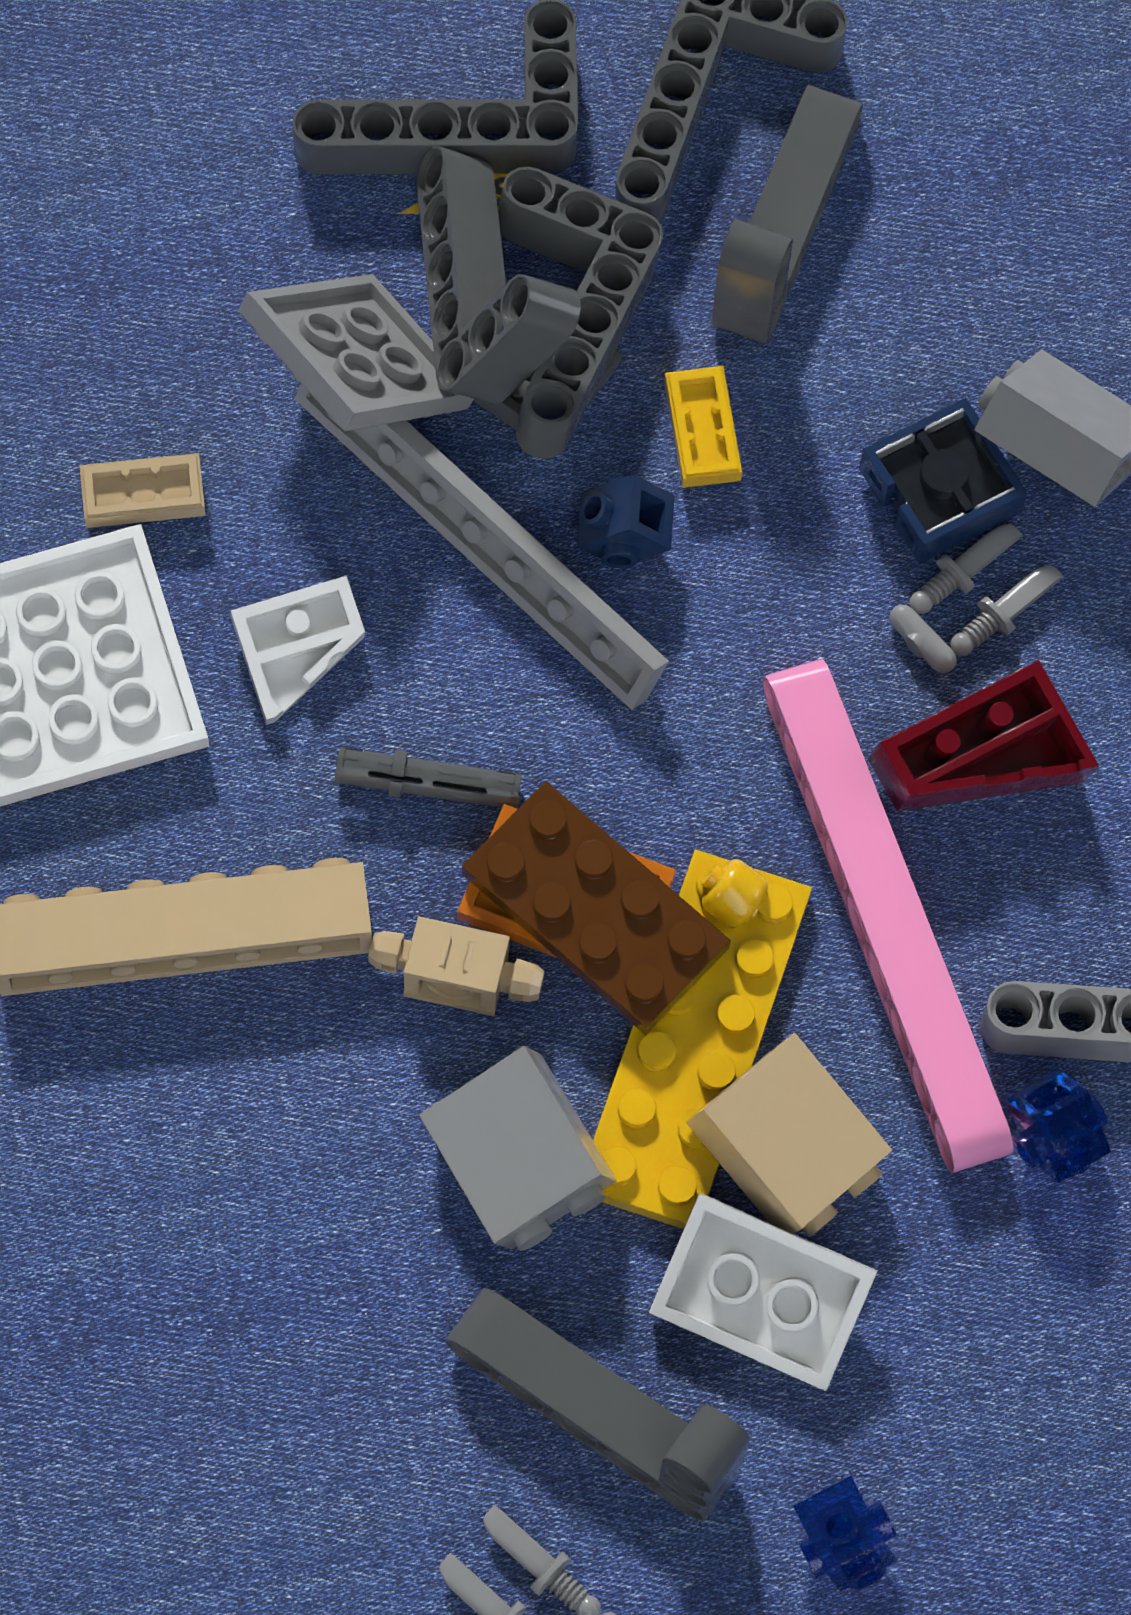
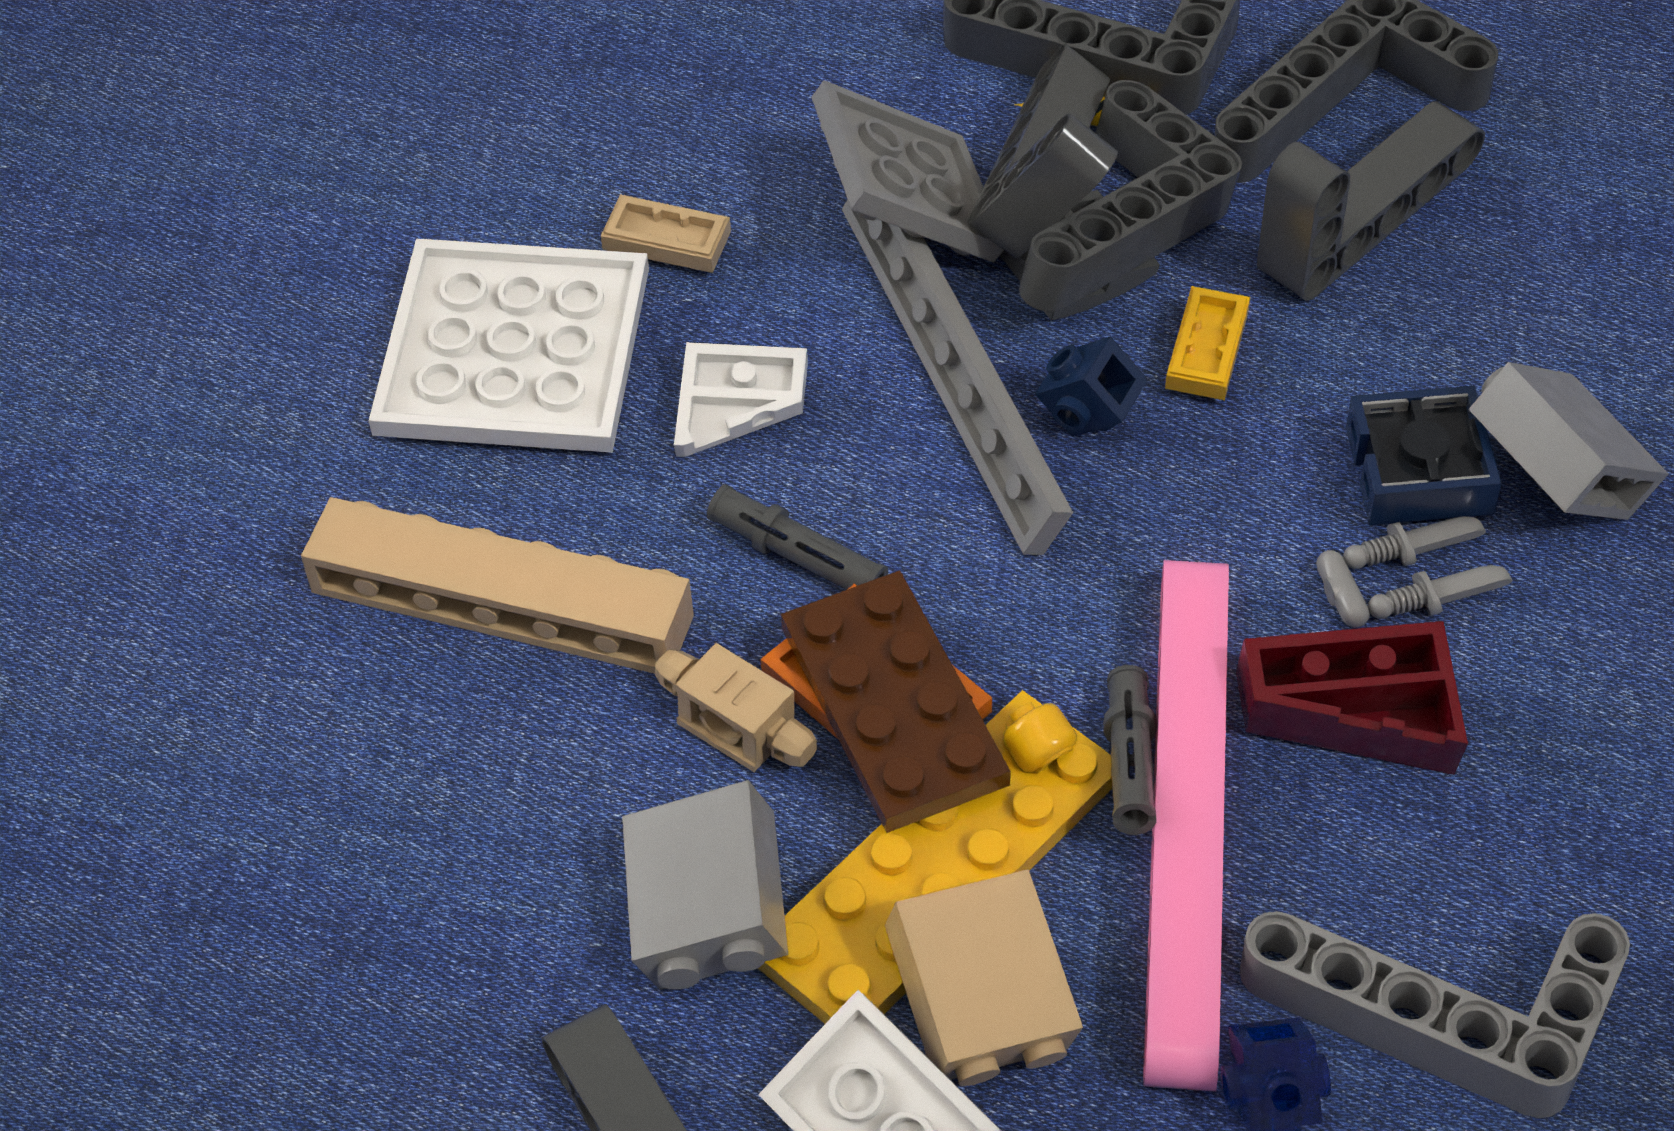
camera: 30 degrees right, 15 degrees down
(789, 822) = (1132, 798): none -> dark grey pin

